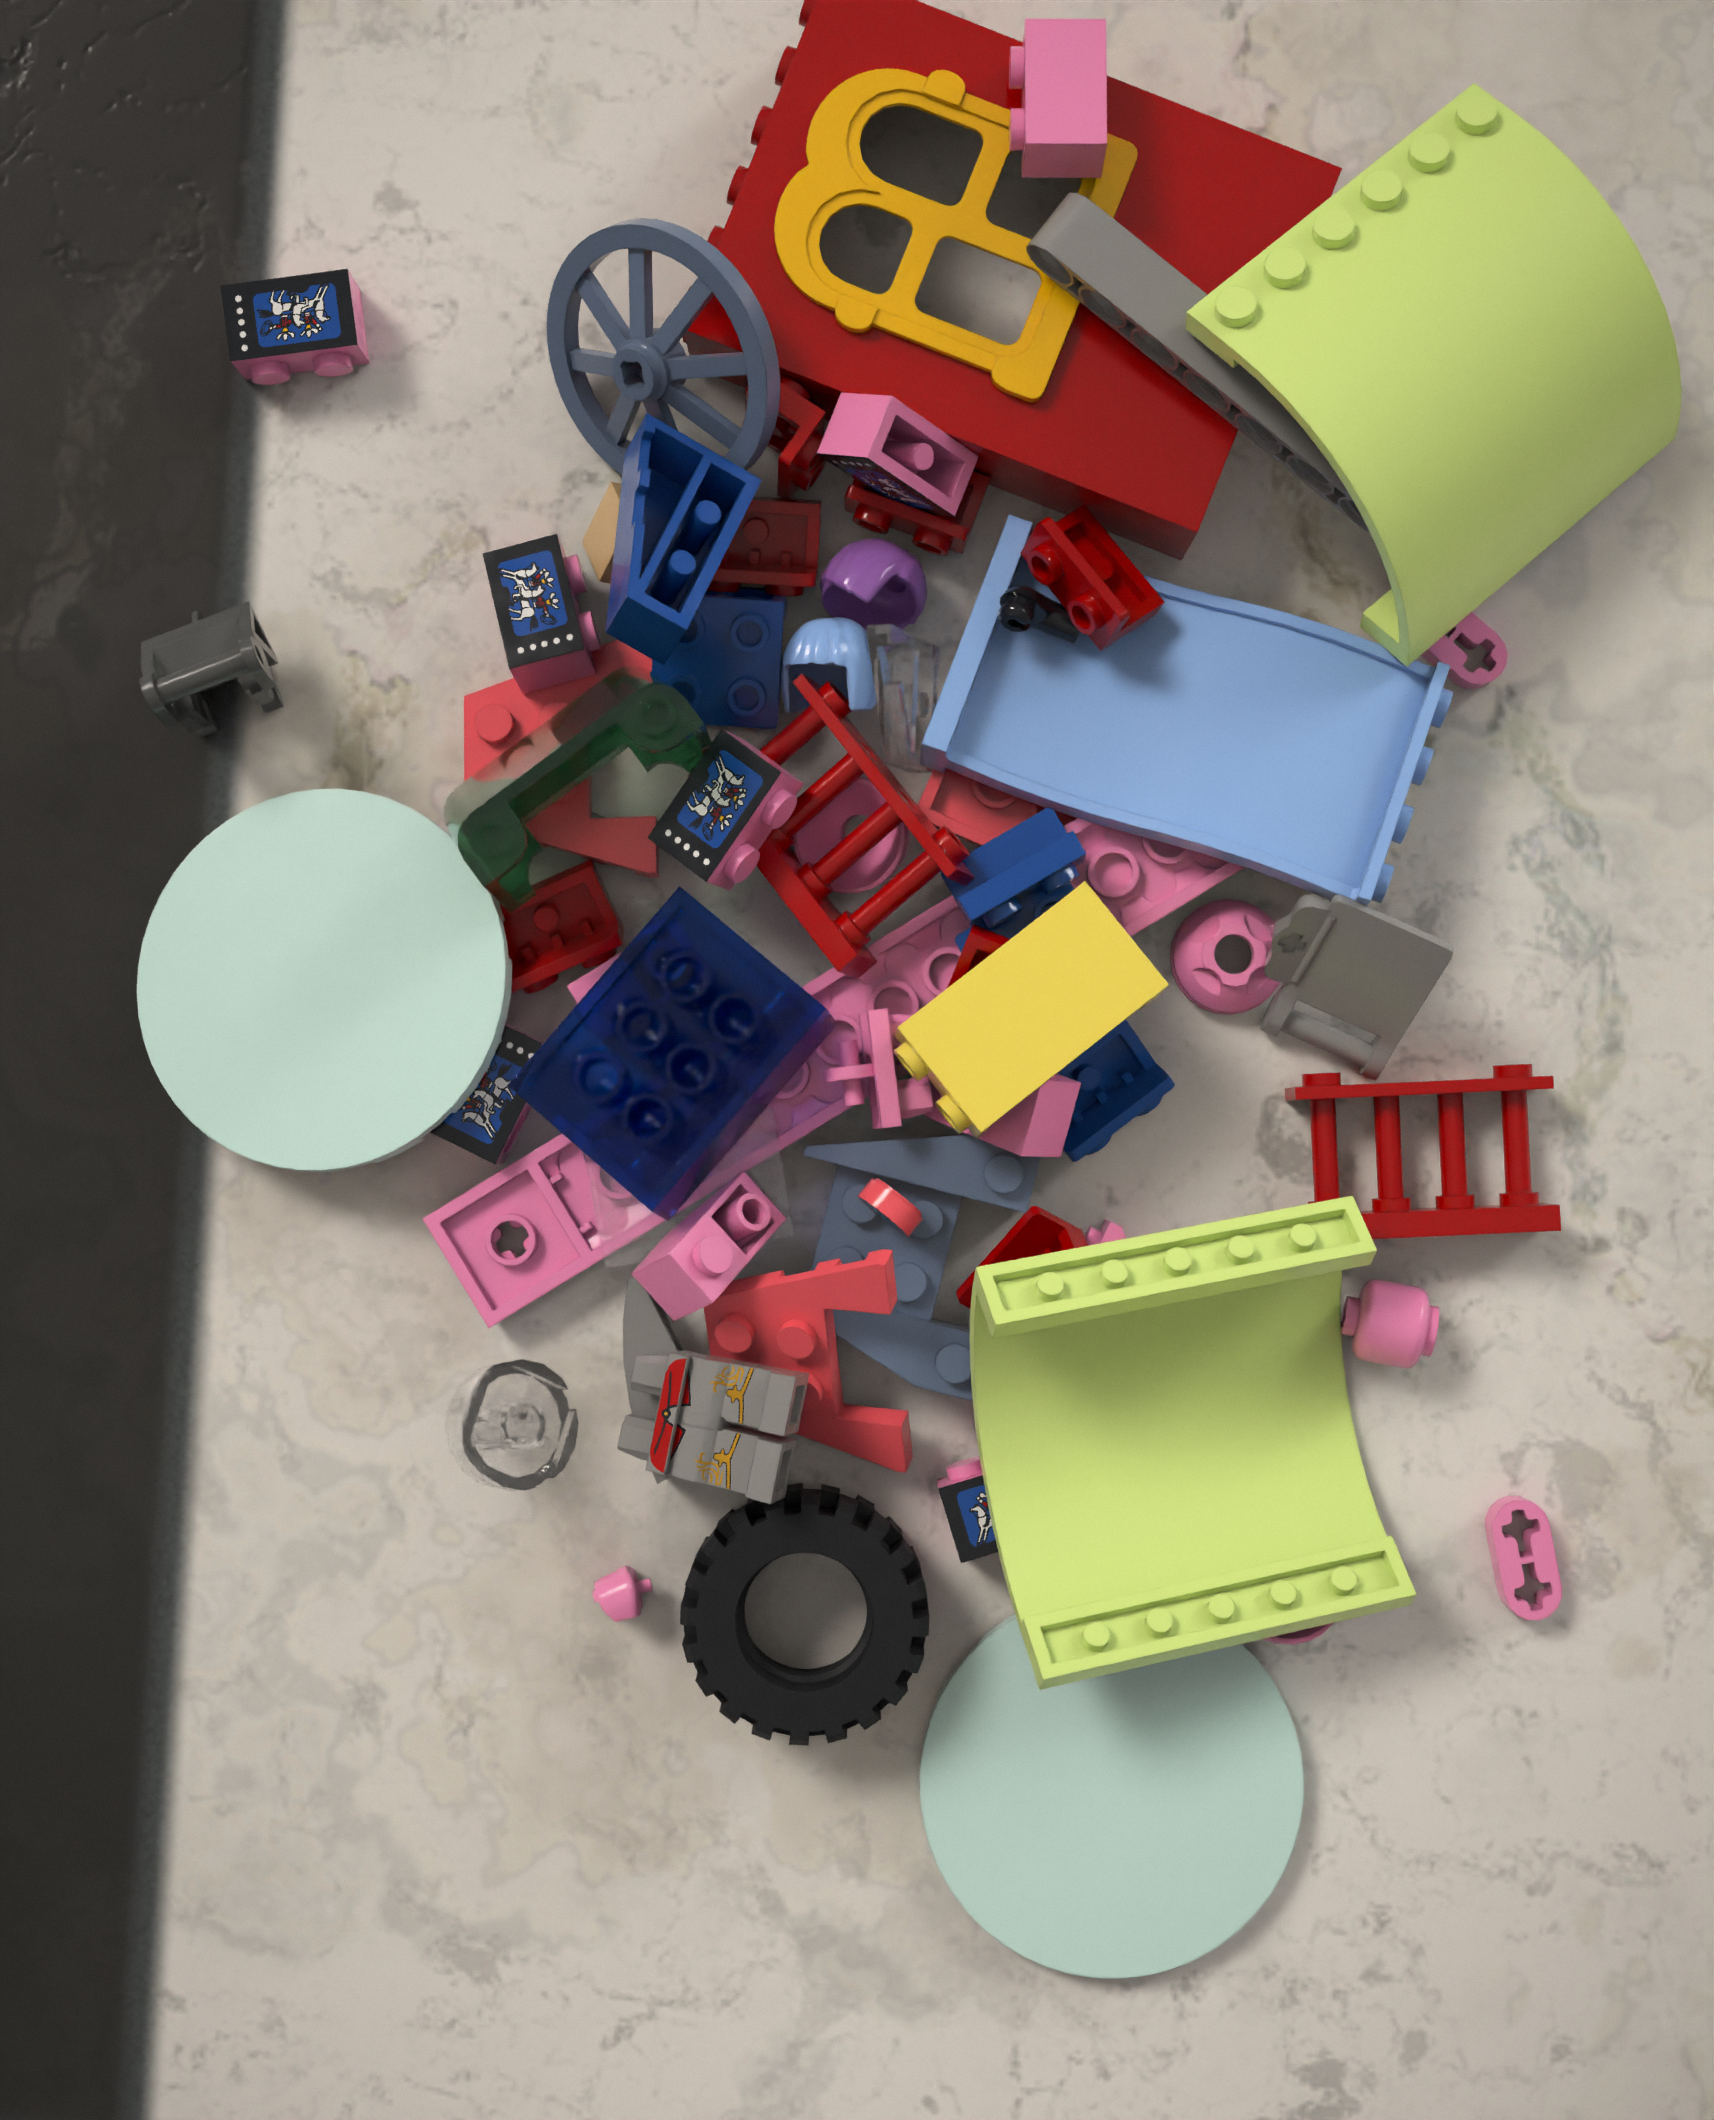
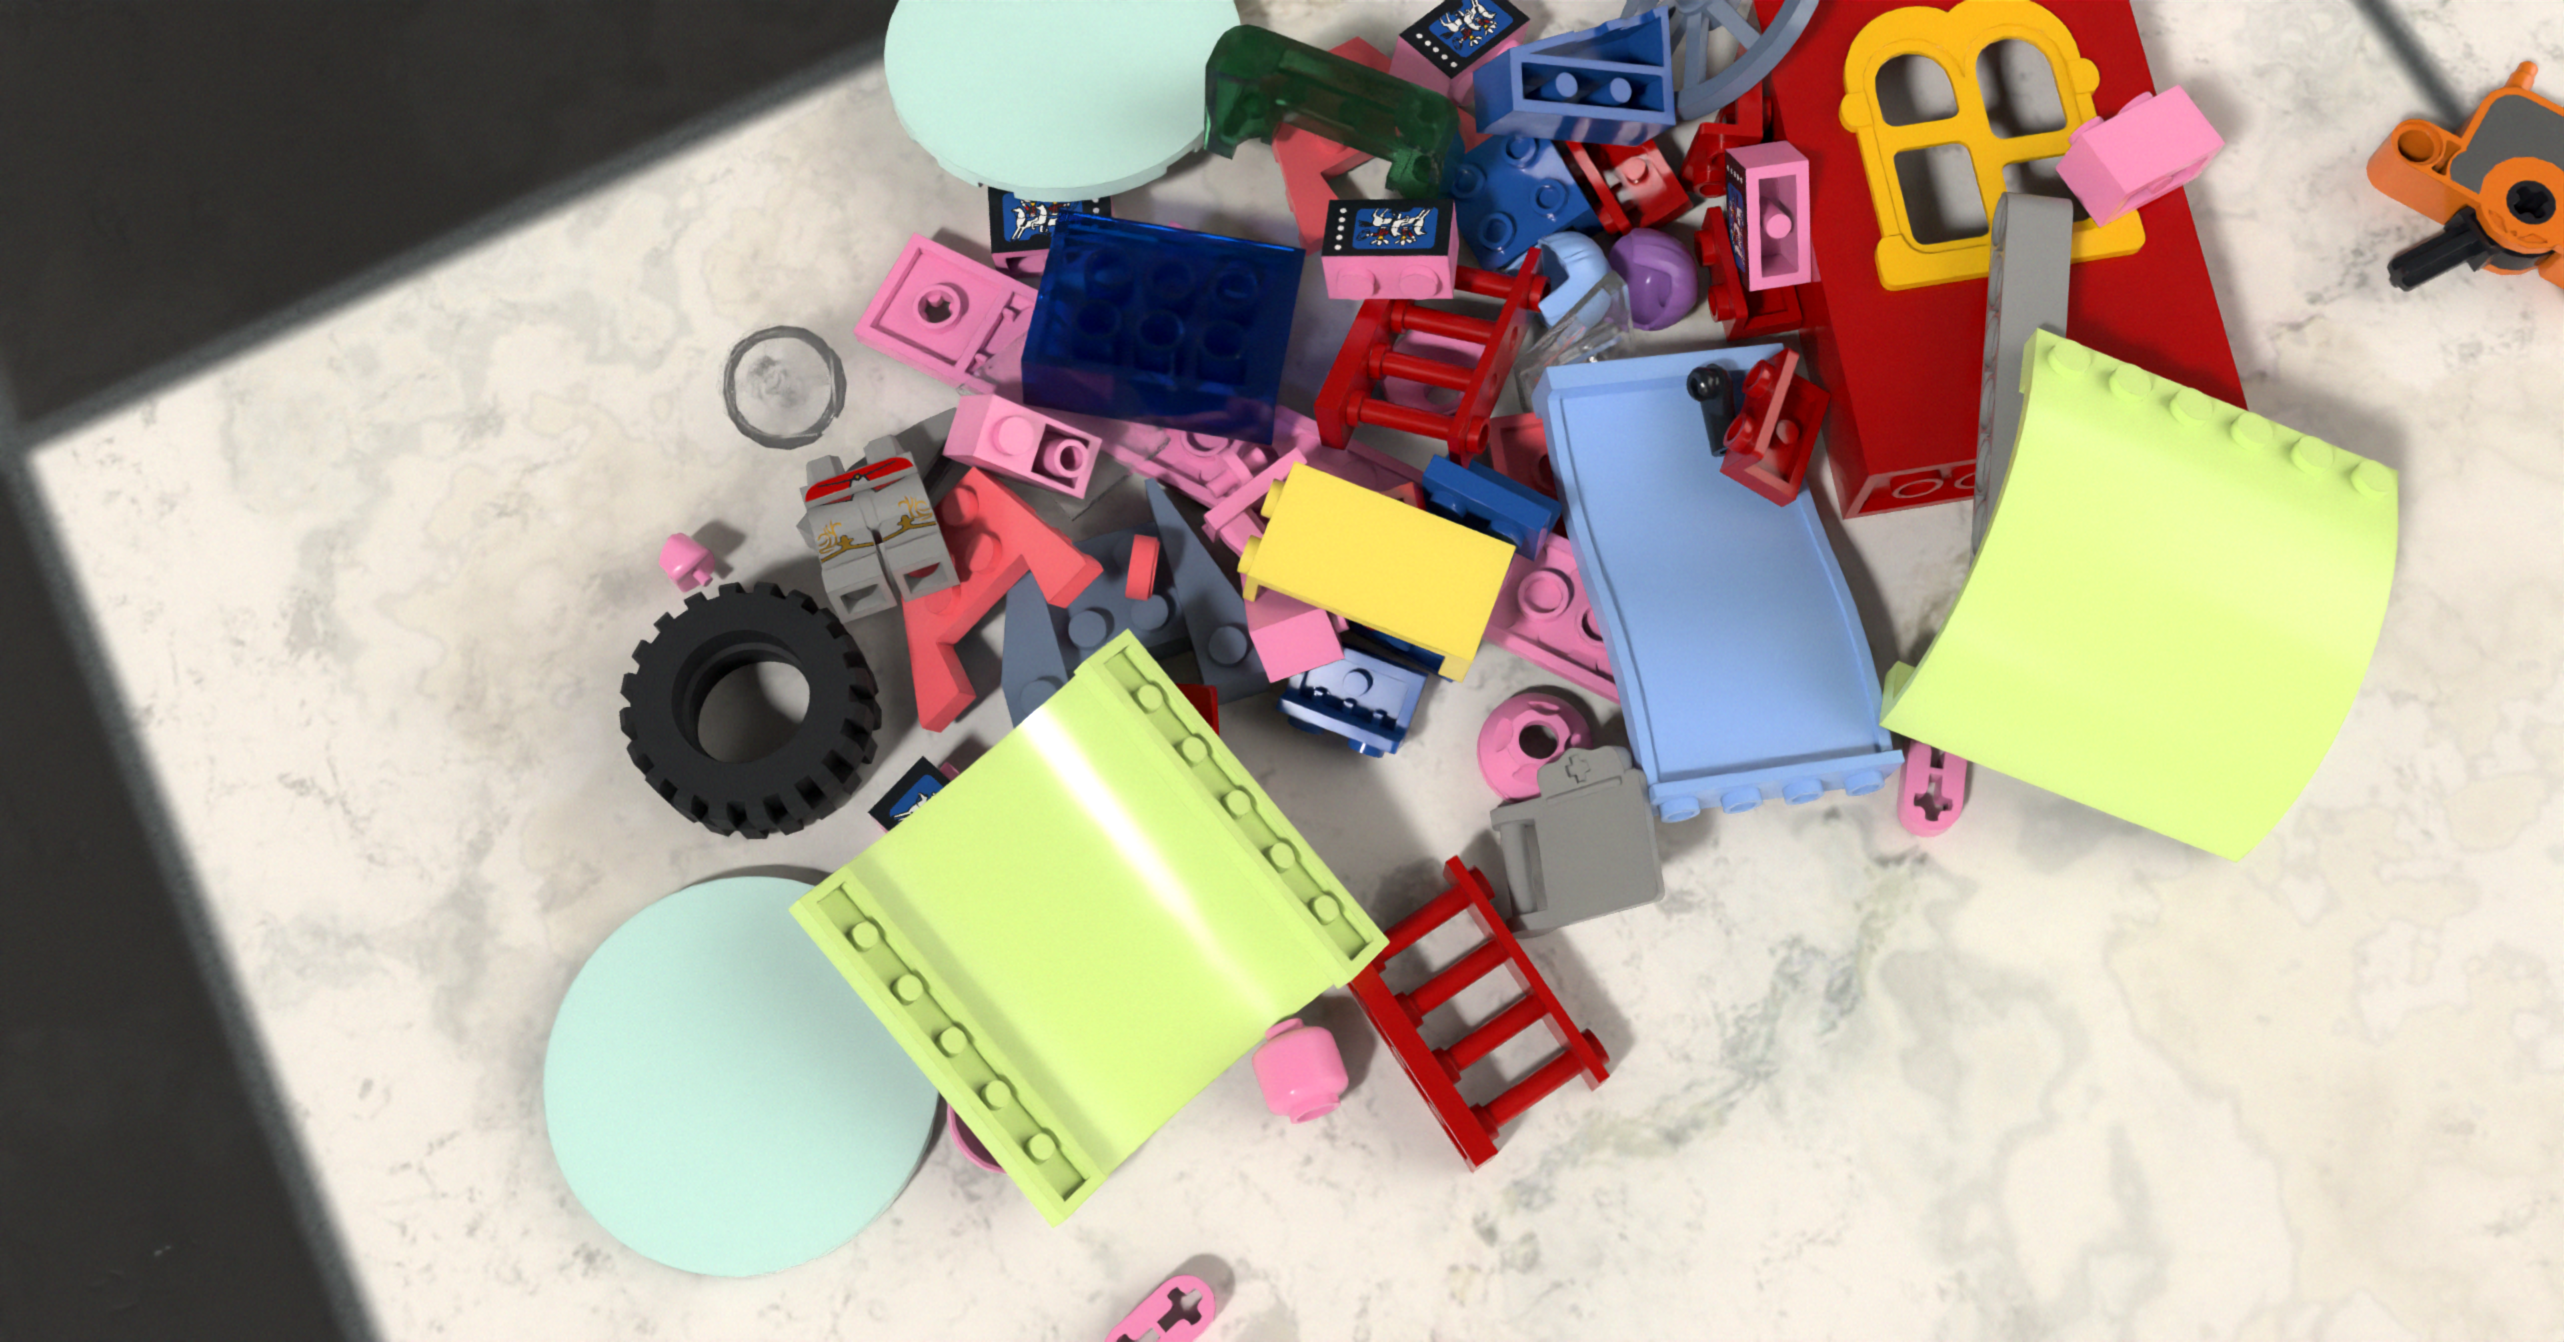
camera: 60 degrees right, 15 degrees down
(561, 927) = (1215, 196): red bracket -> none

